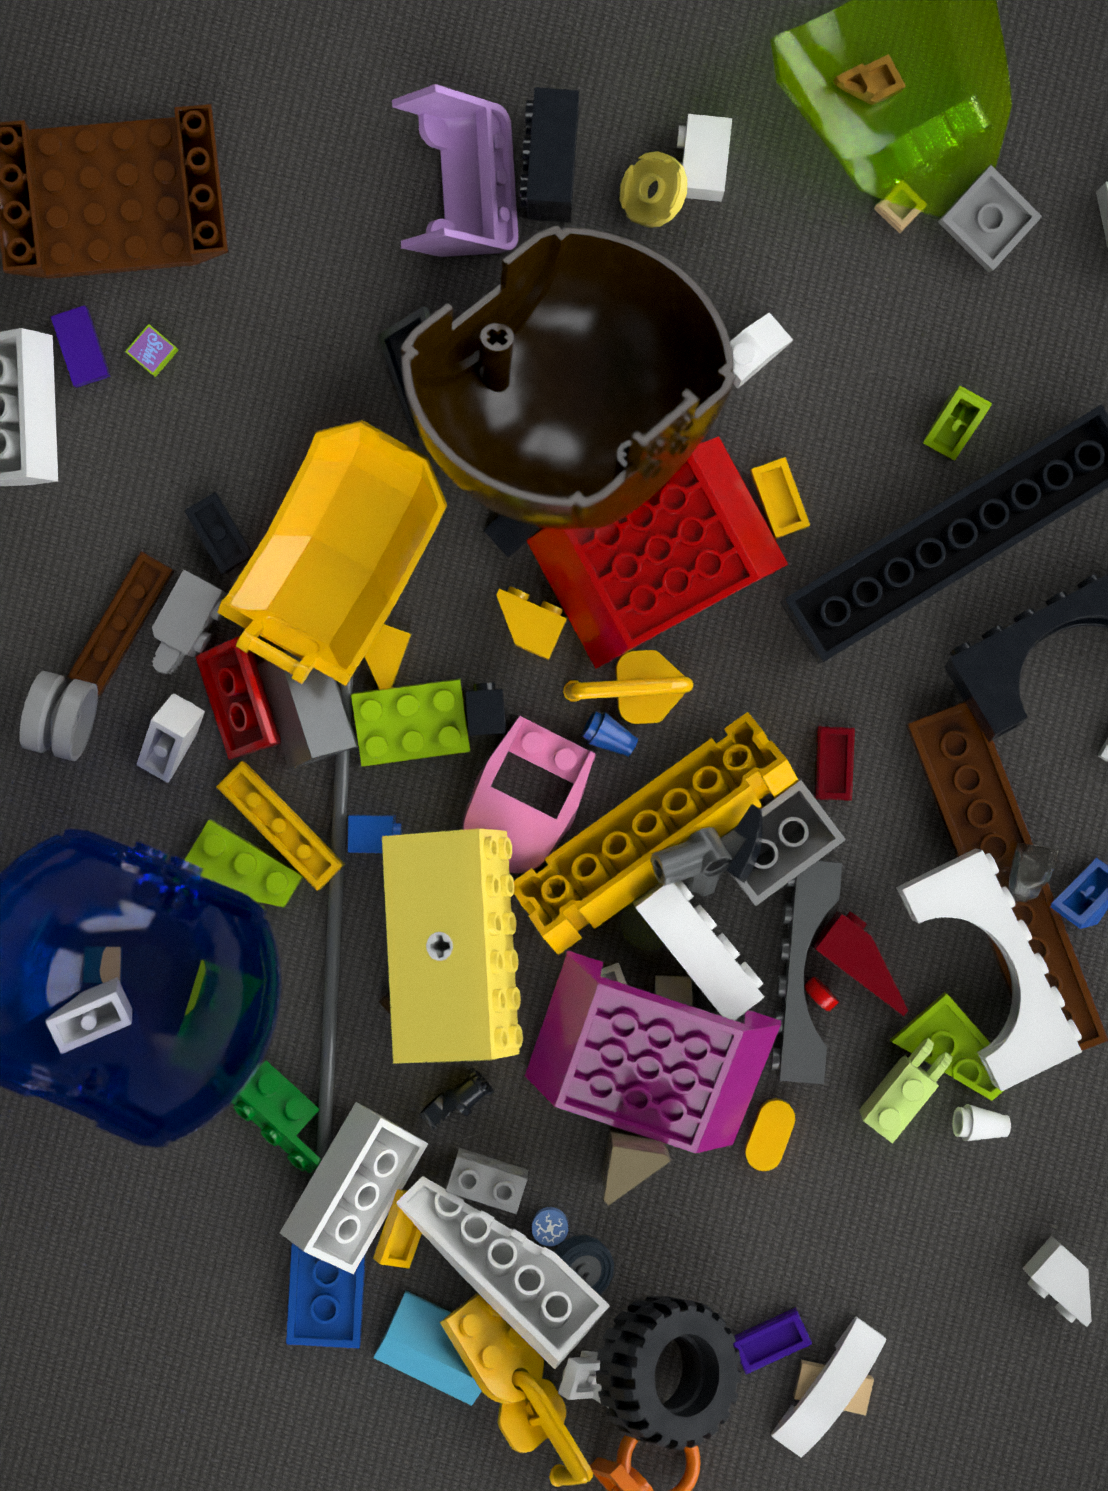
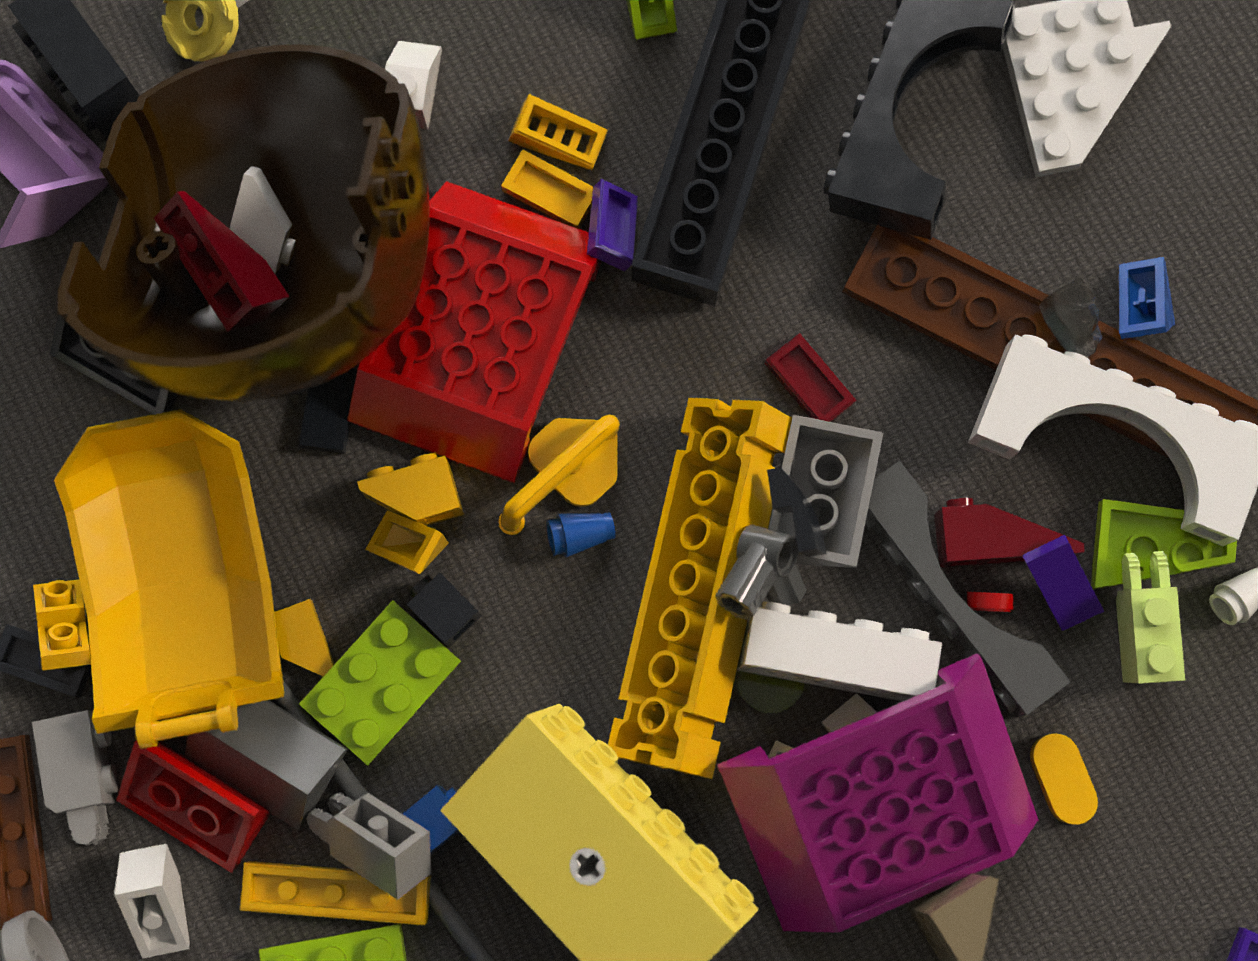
camera: 35 degrees left, 10 degrees down
(248, 521) = (61, 624): none -> yellow slope
(328, 817) = (374, 842): none -> light grey hinge
(496, 650) = (406, 542): none -> yellow slope
(529, 381) = (223, 266): none -> dark red slope
(530, 830) = (584, 683): bright pink slope -> none
(573, 373) = (262, 220): none -> white slope
(797, 558) = (612, 225): none -> dark purple tile
(828, 458) = (553, 147): none -> yellow slope
(874, 1022) = (1063, 582): none -> dark purple tile

